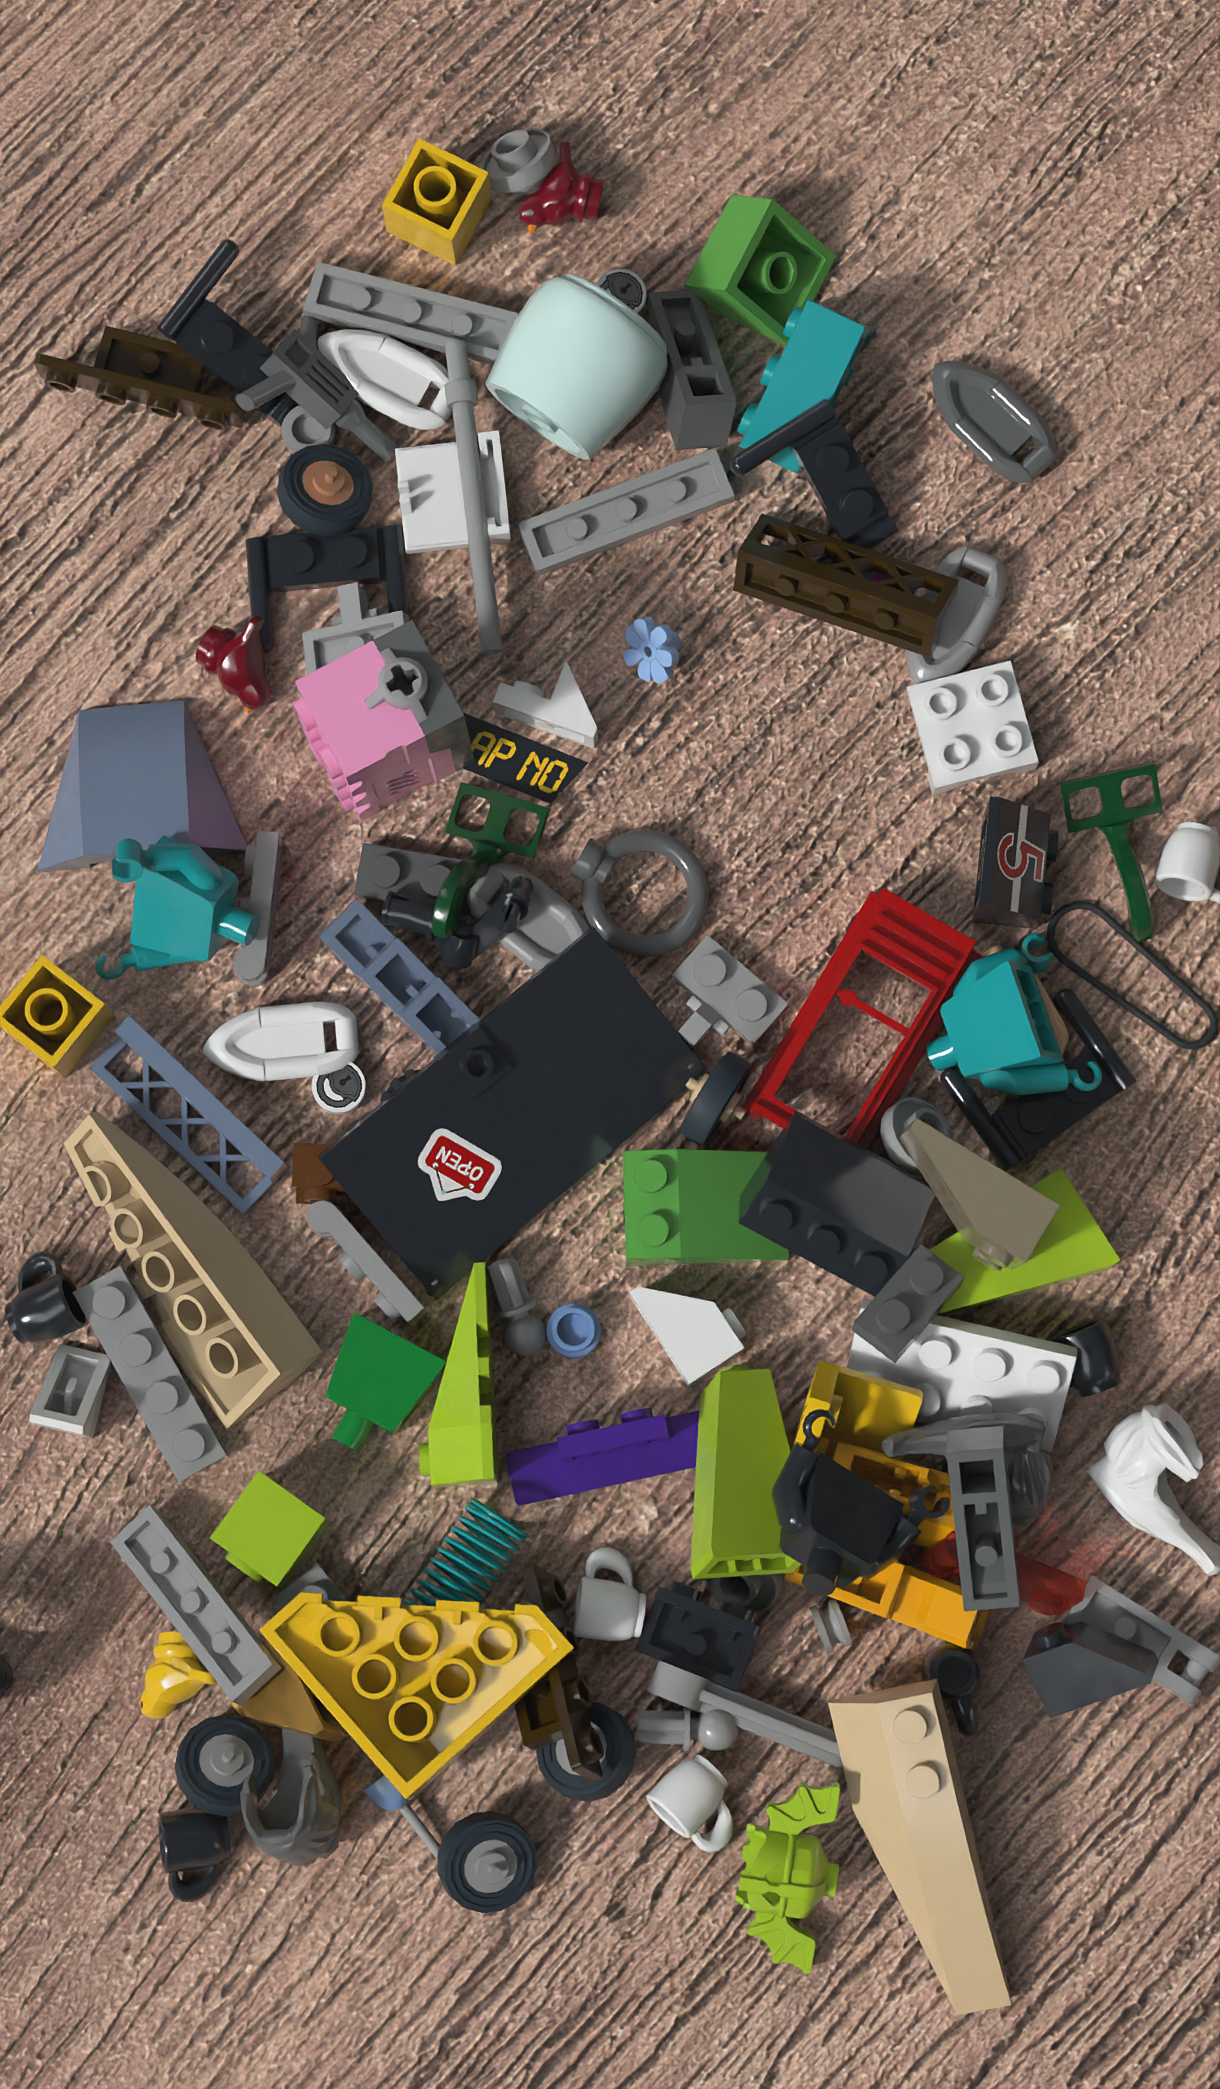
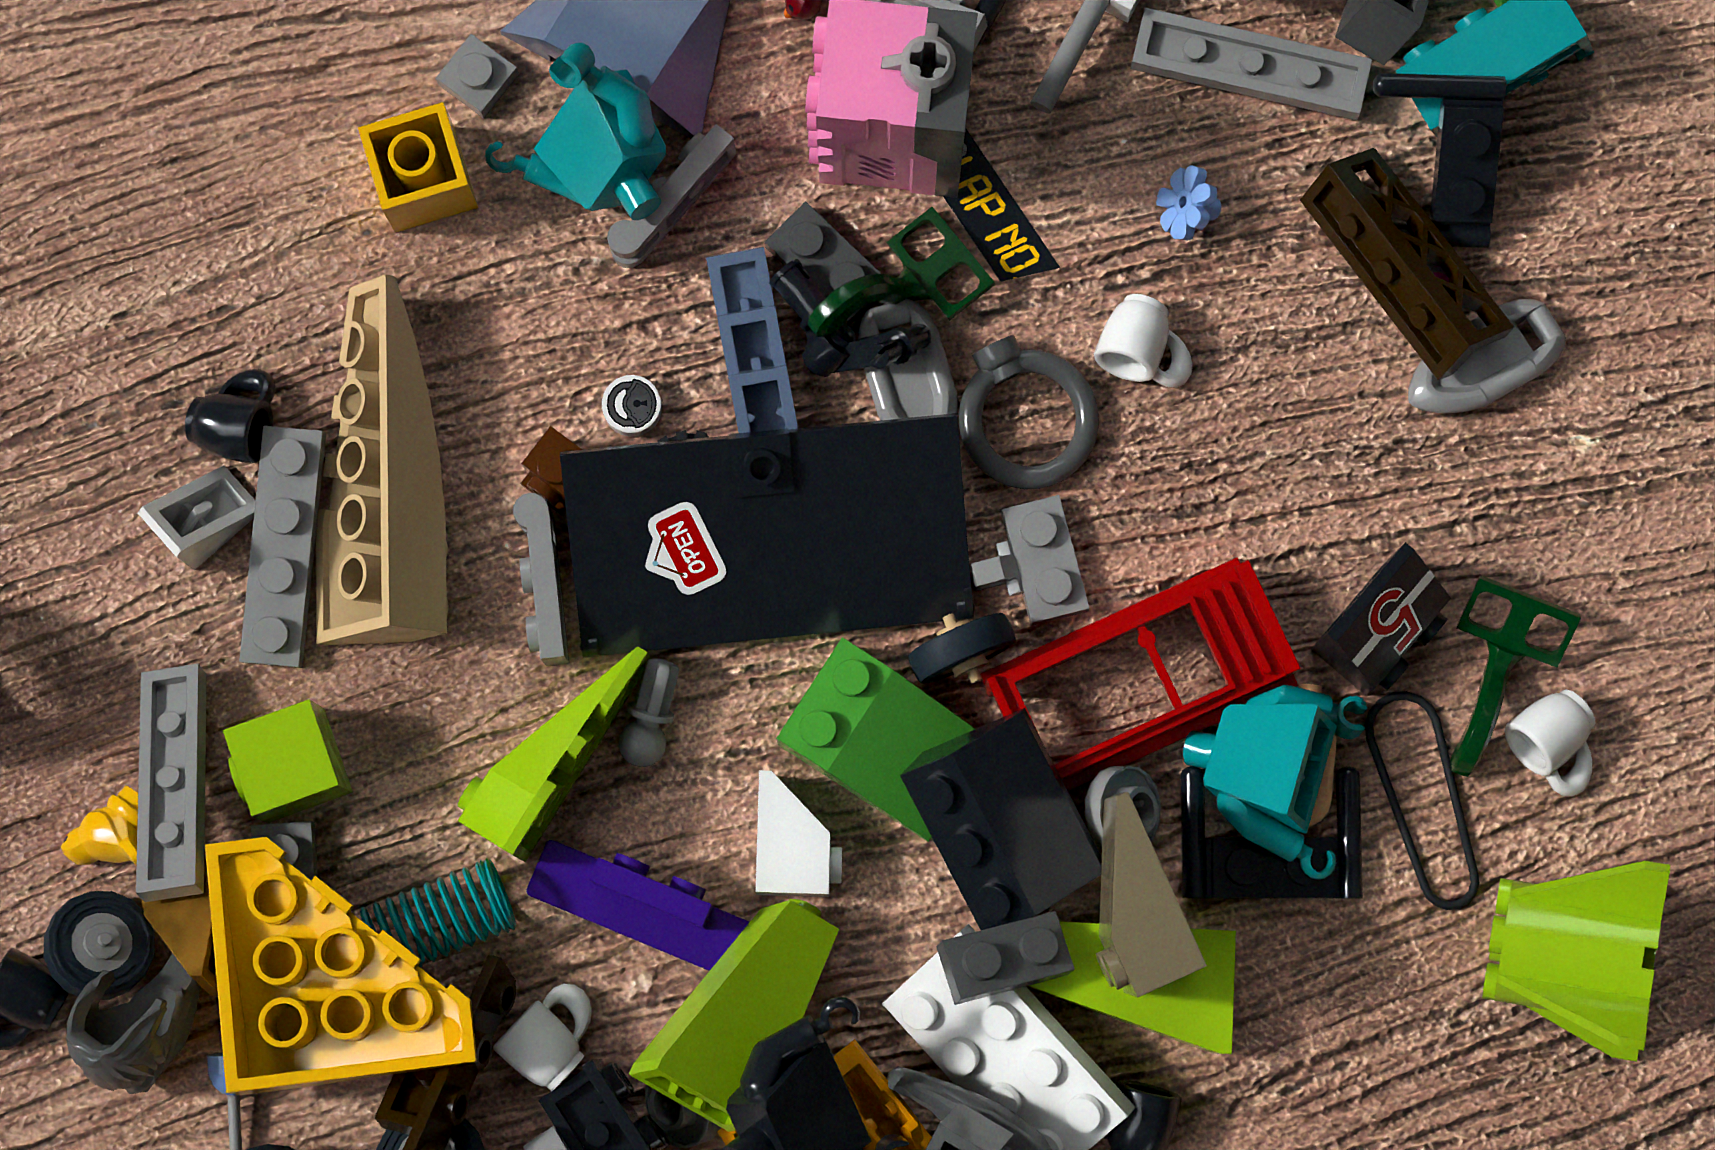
camera: 30 degrees right, 0 degrees up
(44, 916) = (477, 76): none -> light grey plate
(203, 1101) = (499, 334): sand blue fence -> none
(284, 1041) = (611, 331): white piece -> none
(378, 1381) = (479, 694): green torso -> none
(563, 715) = (1063, 206): white slope -> none
(573, 1330) = (688, 770): medium blue plate -> none
(685, 780) = (1136, 342): none -> white piece
(862, 1405) = (893, 1023): yellow bracket -> none
(972, 727) = (1433, 470): white piece -> none
(993, 420) = (1646, 205): dark grey piece -> none

